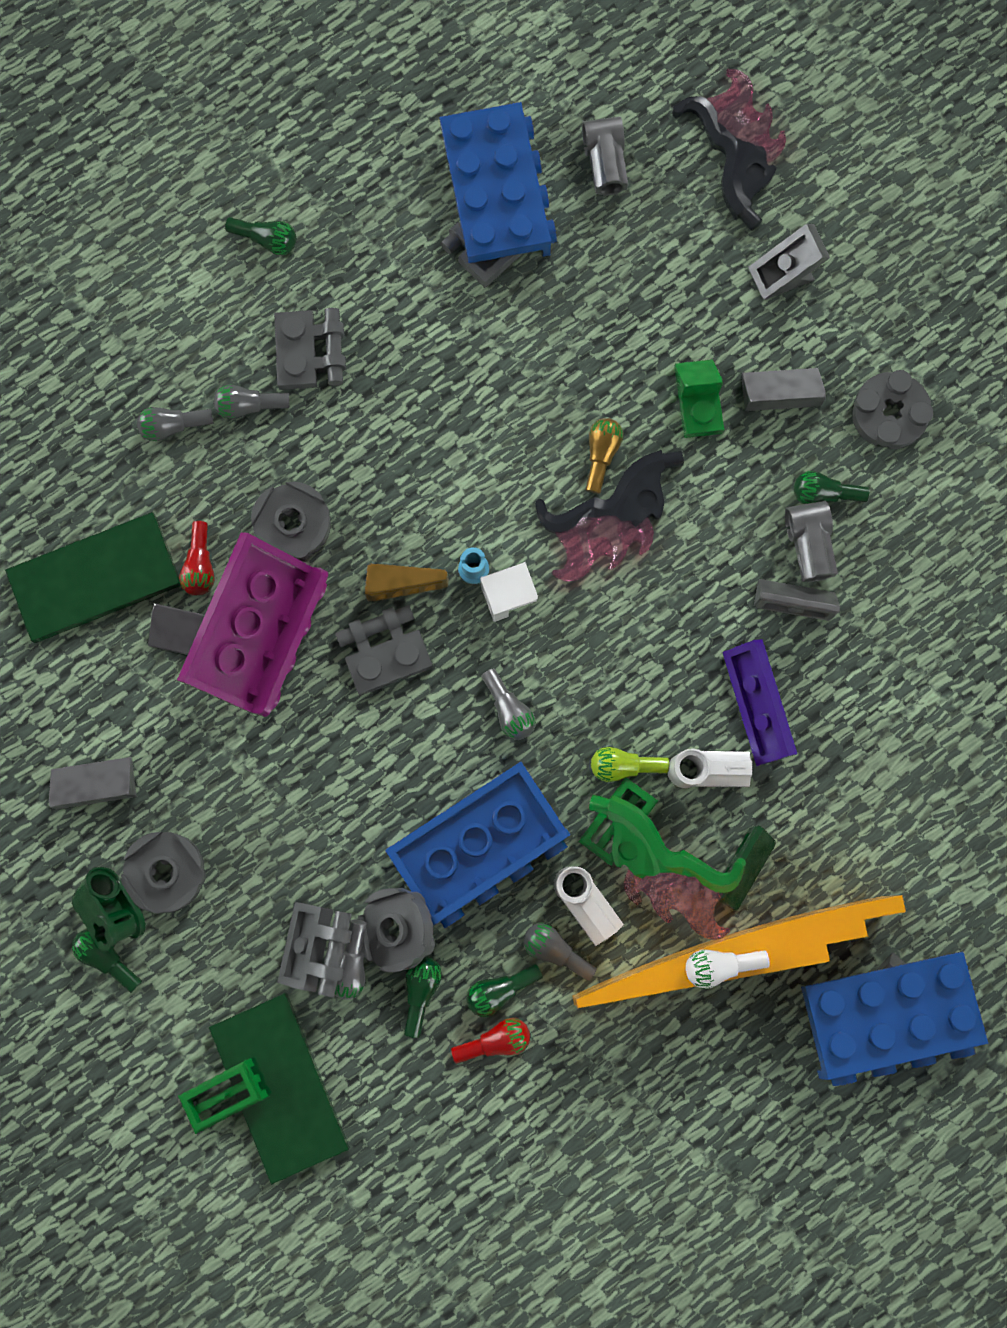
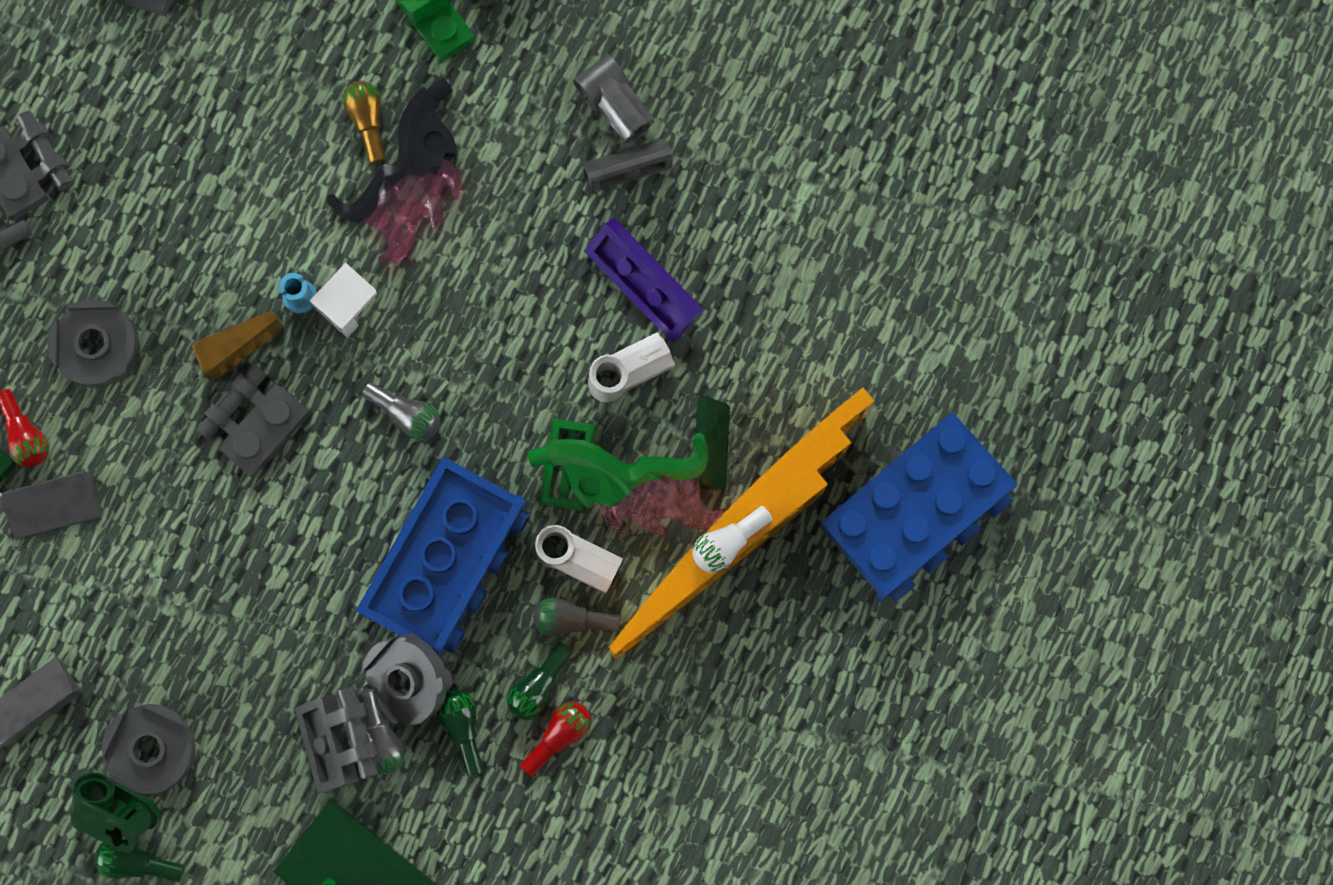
camera: 30 degrees left, 0 degrees up
(253, 626) = (110, 464): magenta bracket -> none
(615, 764) = (535, 412): lime piece -> none
(816, 487) = (592, 45): dark green piece -> none

